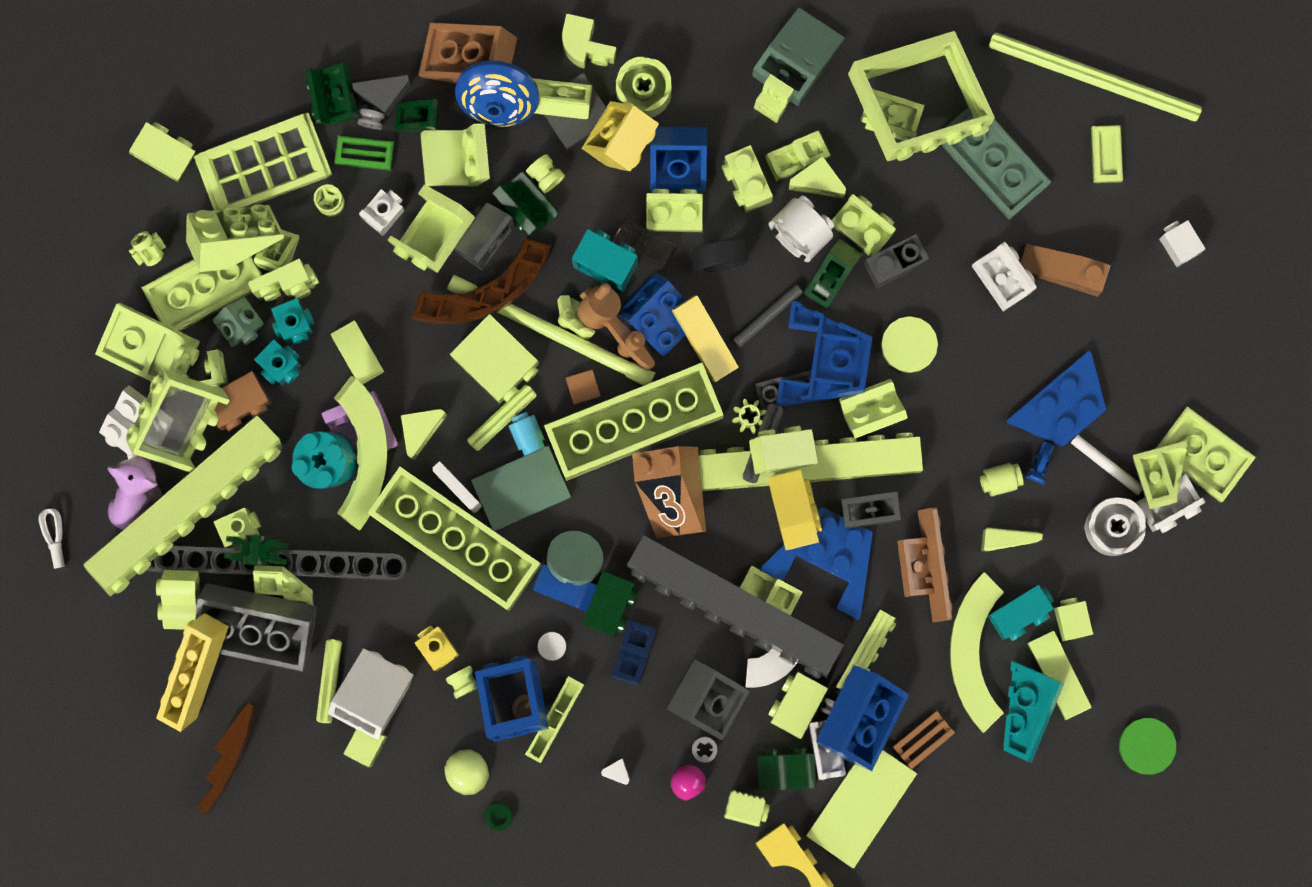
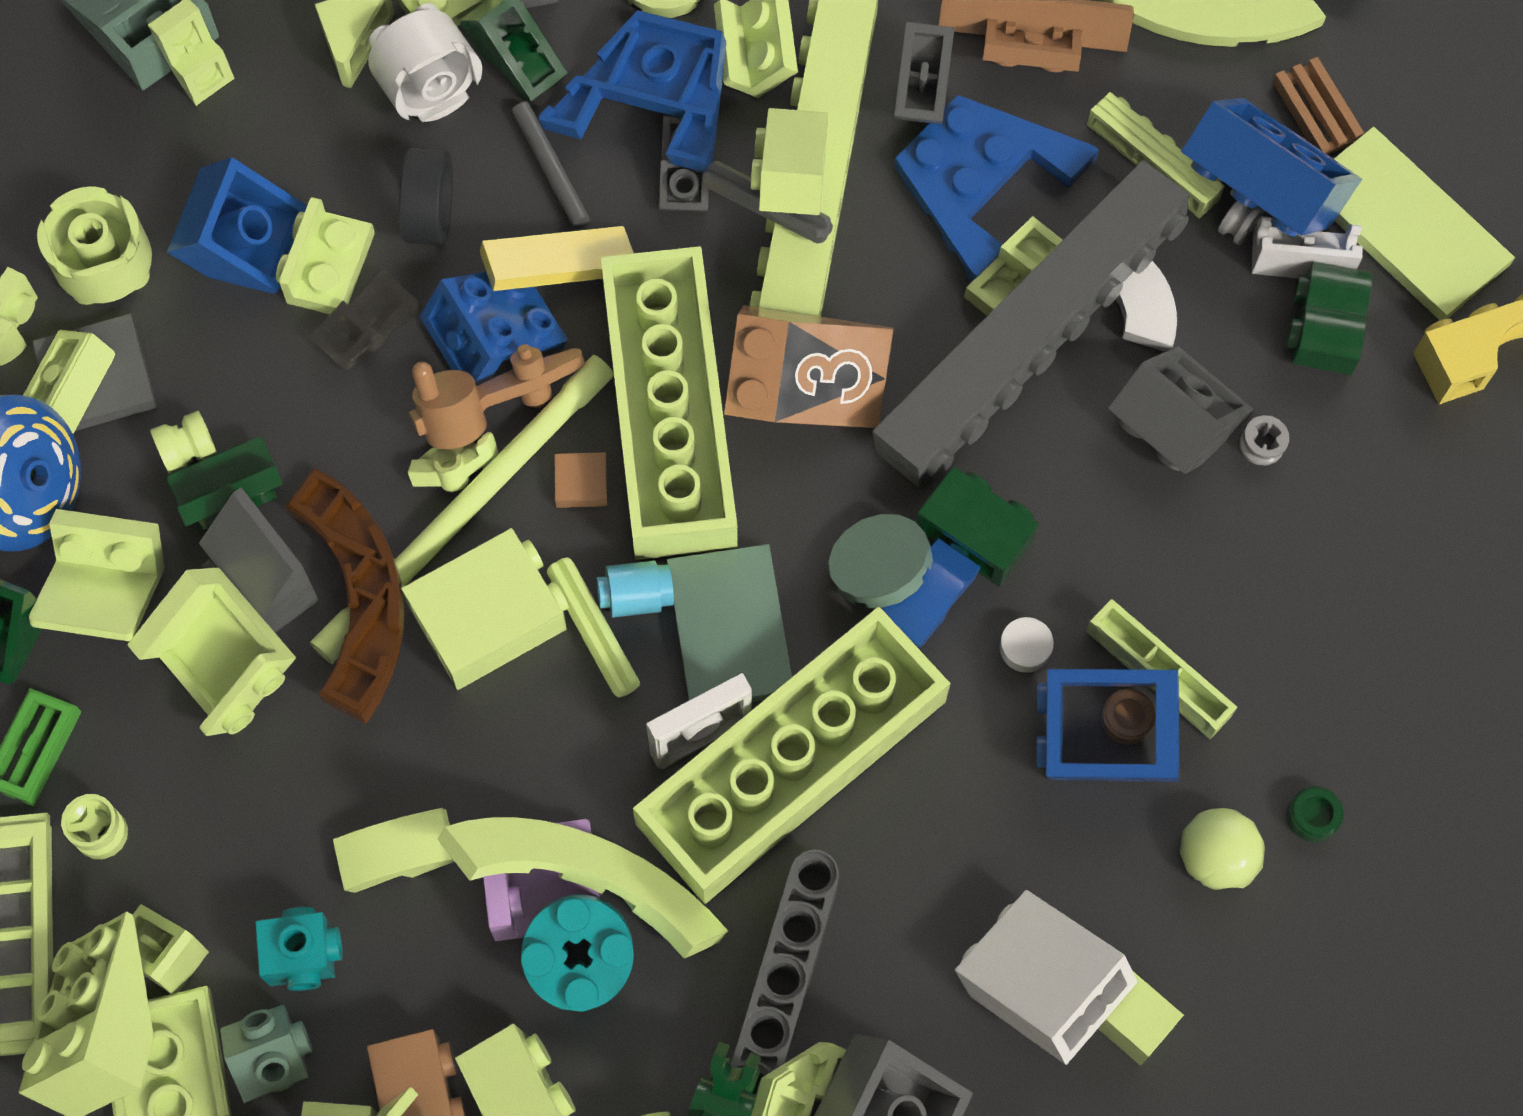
camera: 80 degrees left, 15 degrees down
(274, 354) = (349, 993): teal brick -> none
(293, 279) = (218, 929): yellowish green plate -> none
(328, 679) = (997, 1060): yellowish green axle -> none
(383, 221) = (158, 751): white brick -> none
(419, 429) = (571, 772): yellowish green slope -> none
(436, 647) = (983, 841): light yellow brick -> none
(462, 682) = (1057, 810): yellowish green wheel -> none
(605, 260) = (368, 372): teal brick -> none
(617, 772) = (1275, 583): white slope -> none
(620, 136) = (164, 293): light yellow brick -> none
(633, 653) = (1071, 514): dark blue slope -> none
(688, 782) = (1319, 474): dark pink piece -> none
(745, 423) = (712, 213): yellowish green gear -> none
(746, 808) = (1387, 384): yellowish green brick -> none
(747, 178) = (311, 129): yellowish green brick -> none
(795, 509) = (894, 180): light yellow brick -> none
(797, 155) = (300, 57): yellowish green slope -> none
(797, 705) = (1222, 271): yellowish green piece -> none

